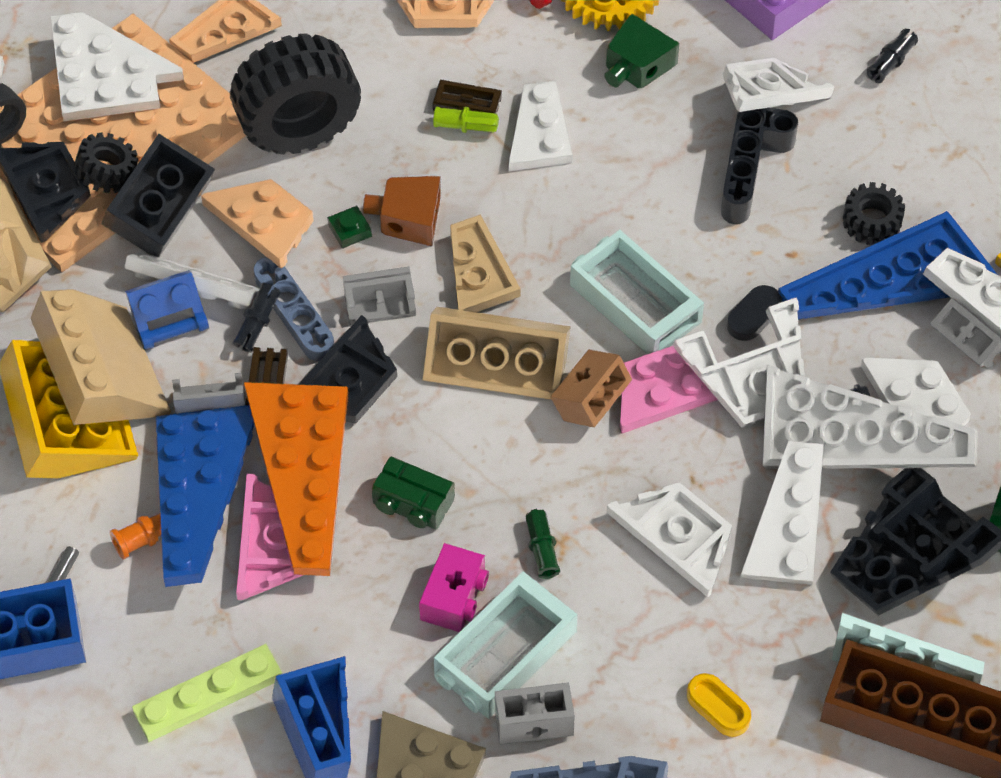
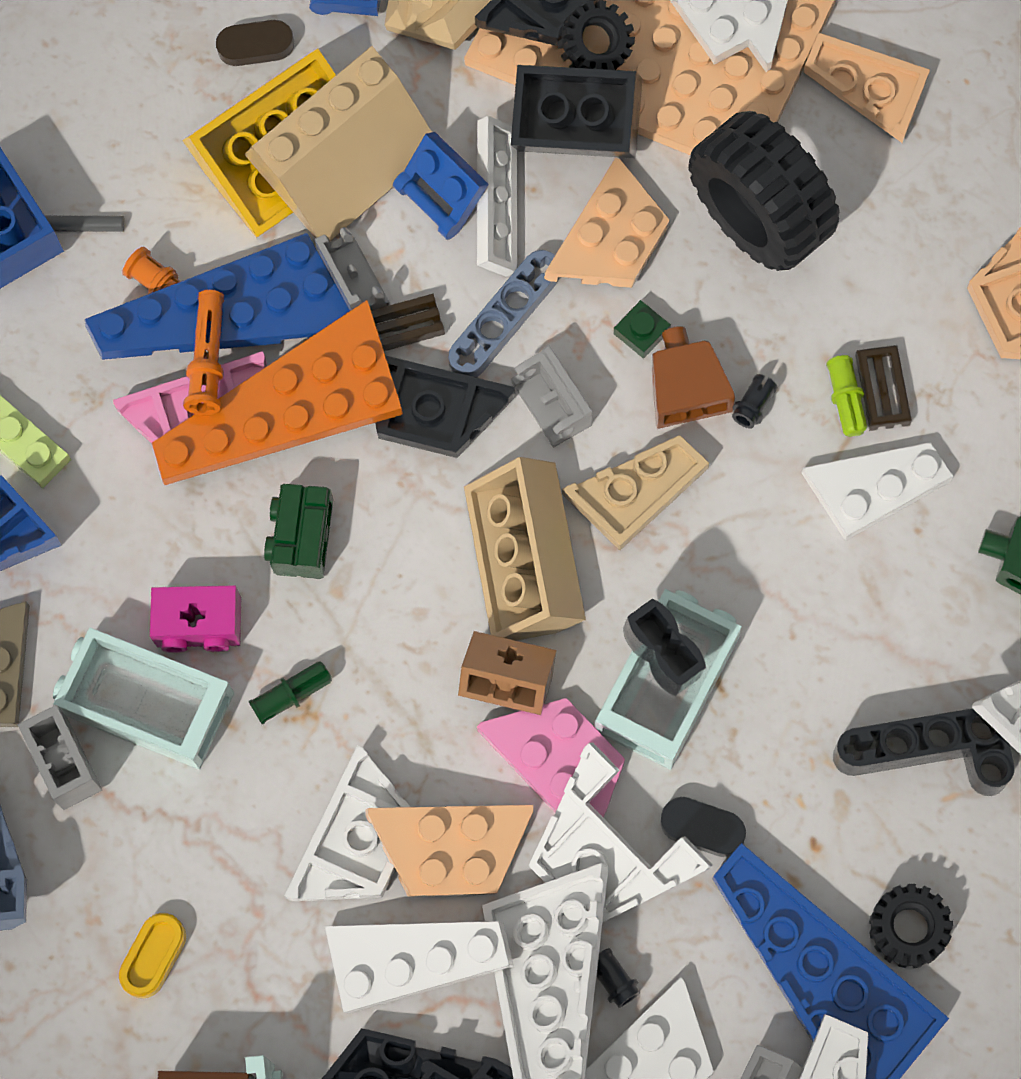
camera: 75 degrees right, 15 degrees up
(252, 503) = (205, 366): none -> orange pin
(256, 317) = (468, 280): black pin -> none
(450, 179) = (749, 410): none -> black pin
(622, 268) = (656, 639): none -> black brick
(712, 468) = (450, 846): none -> light nougat wing

